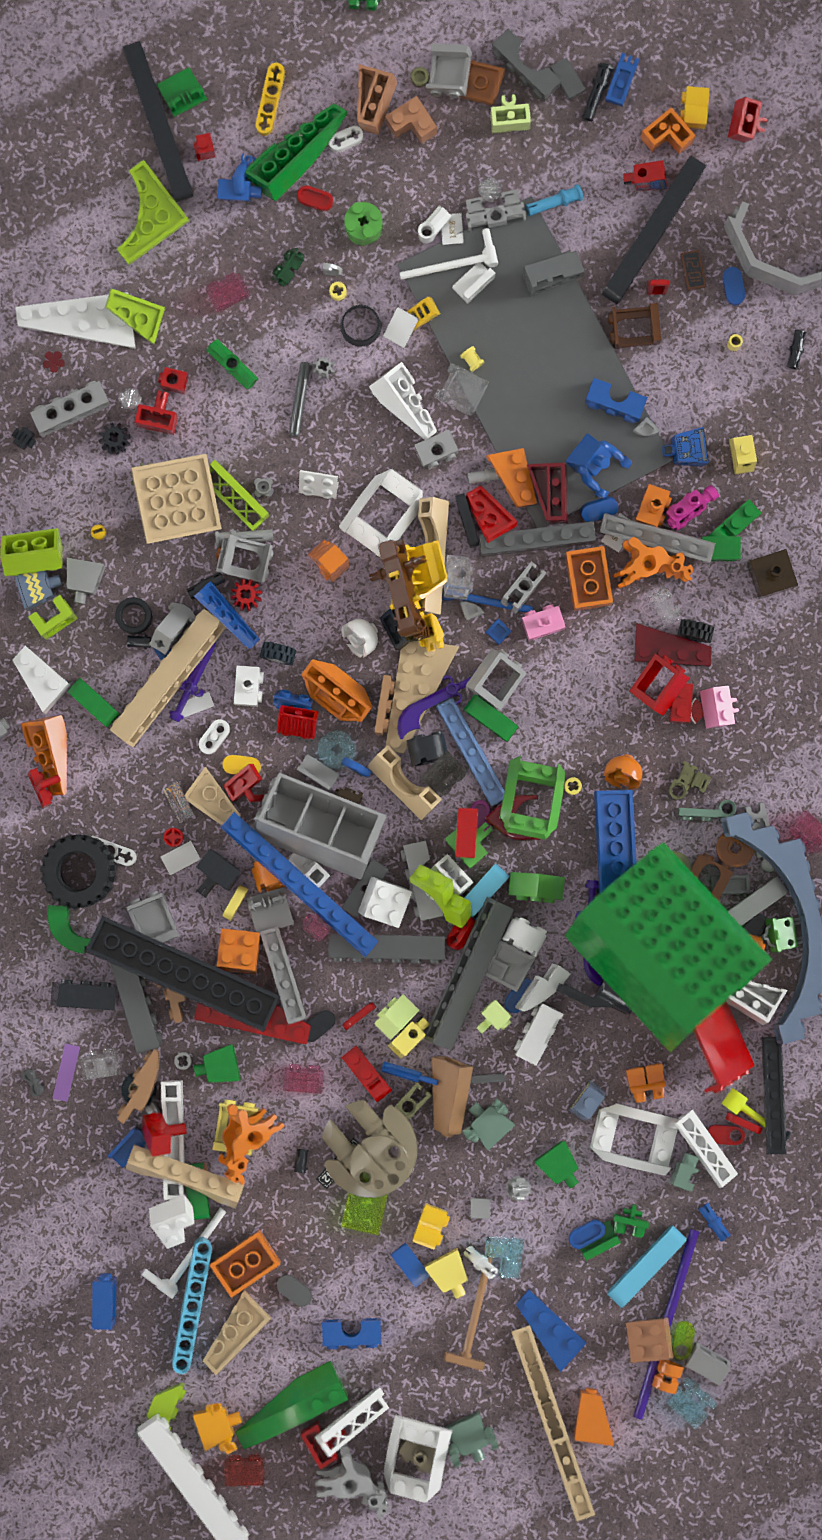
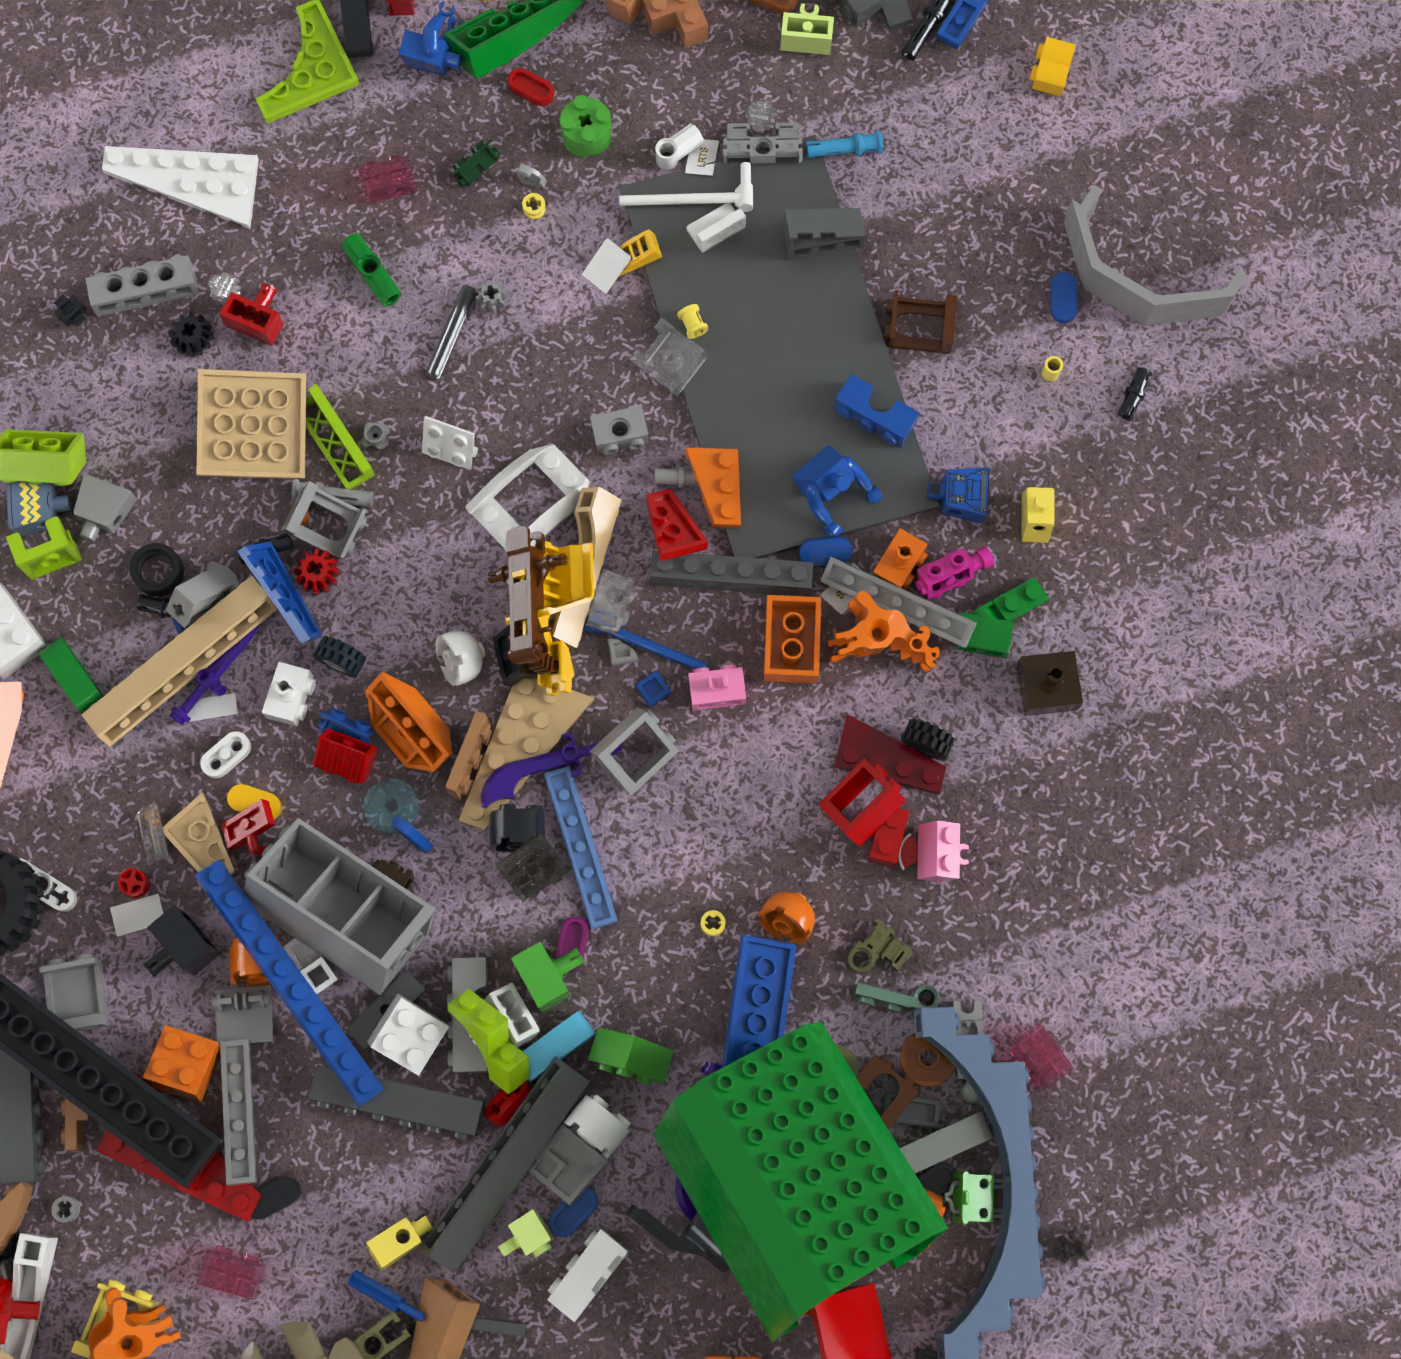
camera: 10 degrees right, 10 degrees down
(53, 361) = (138, 223): dark red plant -> none
(100, 535) = (138, 456): yellow hinge -> none
(137, 313) = (259, 180): lime wing -> none
(179, 386) = (296, 282): red brick -> none
(219, 1065) = (115, 1227): green torso -> none
(235, 902) = (197, 993): light yellow beam -> none
(314, 925) = (300, 1051): clear pink brick -> none
(318, 772) = (358, 832): light grey panel -> none
(329, 560) = (441, 548): orange wedge -> none
(348, 143) = (587, 22): white beam -> none
(359, 1015) = (333, 1194): red tile -> none
(360, 343) = (560, 275): black tyre -> none
(366, 1074) = (325, 1284): red plate -> none
(388, 769) = (456, 846): tan arch -> none
(396, 1016) = (386, 1205): yellowish green brick -> none
(397, 394) = (583, 349): white wedge -> none
(466, 833) = (542, 954): red piece -> none
(467, 520) = (641, 531): black beam -> none
(491, 718) = (616, 804): green beam -> none
(493, 818) = (605, 946): dark red animal -> none
(523, 580) = (697, 644): light grey piece -> none
(537, 774) = (663, 895): bright green wedge -> none
(542, 987) = (608, 1207): white slope -> none
(551, 488) = (765, 509): dark red wedge -> none
(646, 428) = (911, 456): light grey tile -> none
(647, 176) = (974, 137): red torso -> none
(654, 230) = (969, 207): black beam -> none
(657, 286) = (961, 276): red slope -> none
(663, 607) = (888, 699): clear brick -> none
(668, 128) = (1014, 84): orange brick -> none
(693, 270) = (1012, 268): tile -> none
(746, 120) = (1117, 92): red brick -> none
(757, 1001) = (916, 1290): white wedge -> none

